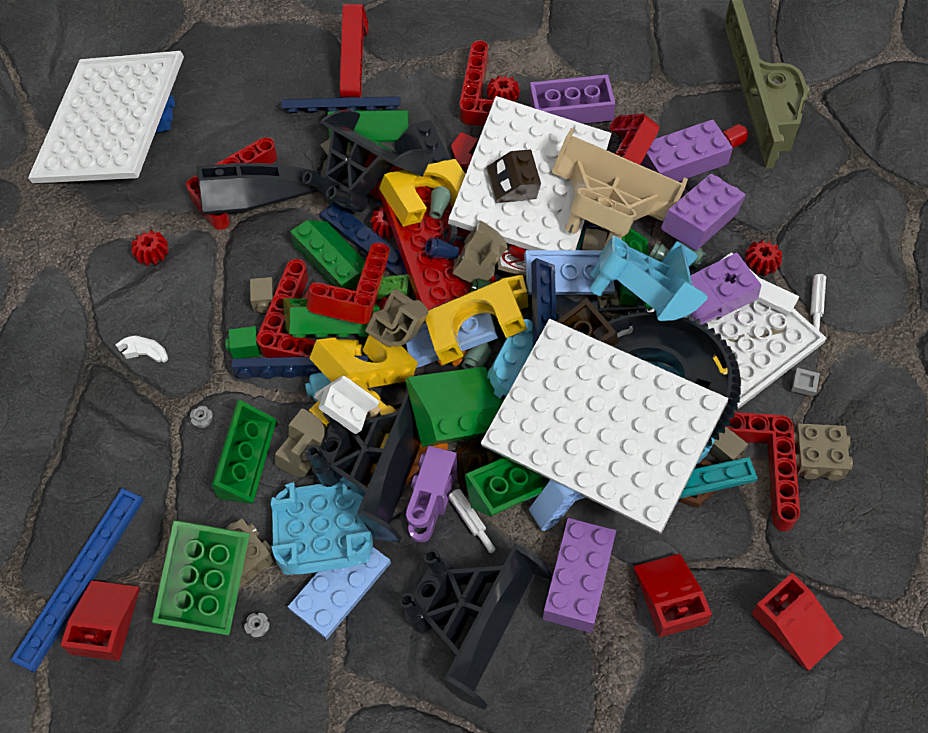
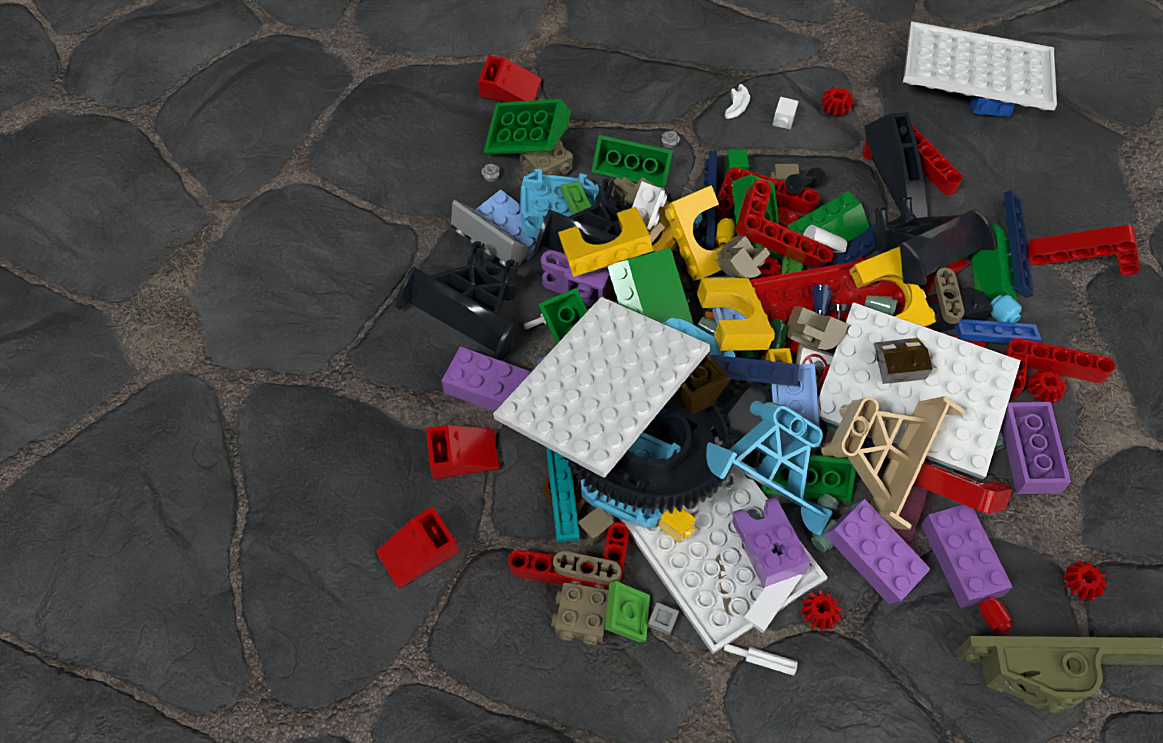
camera: 95 degrees right, 0 degrees up
(74, 584) = (551, 75): blue tile -> none
(166, 297) = (785, 113): none -> white brick
(284, 275) = (796, 183): none -> black wheel
(315, 503) = (574, 197): none -> bright green plate
(357, 251) = (836, 243): none -> white brick
(369, 604) = (480, 228): none -> light grey slope
(422, 112) = (1005, 309): none -> medium azure head
(429, 466) = (588, 257): none -> yellow arch
(440, 150) = (945, 303): none -> dark tan beam
(450, 122) = (995, 331): none -> blue plate
(686, 79) = (1084, 580): none -> red gear
(778, 452) = (568, 570): none -> dark tan beam
(813, 408) = (627, 611): none -> bright green plate

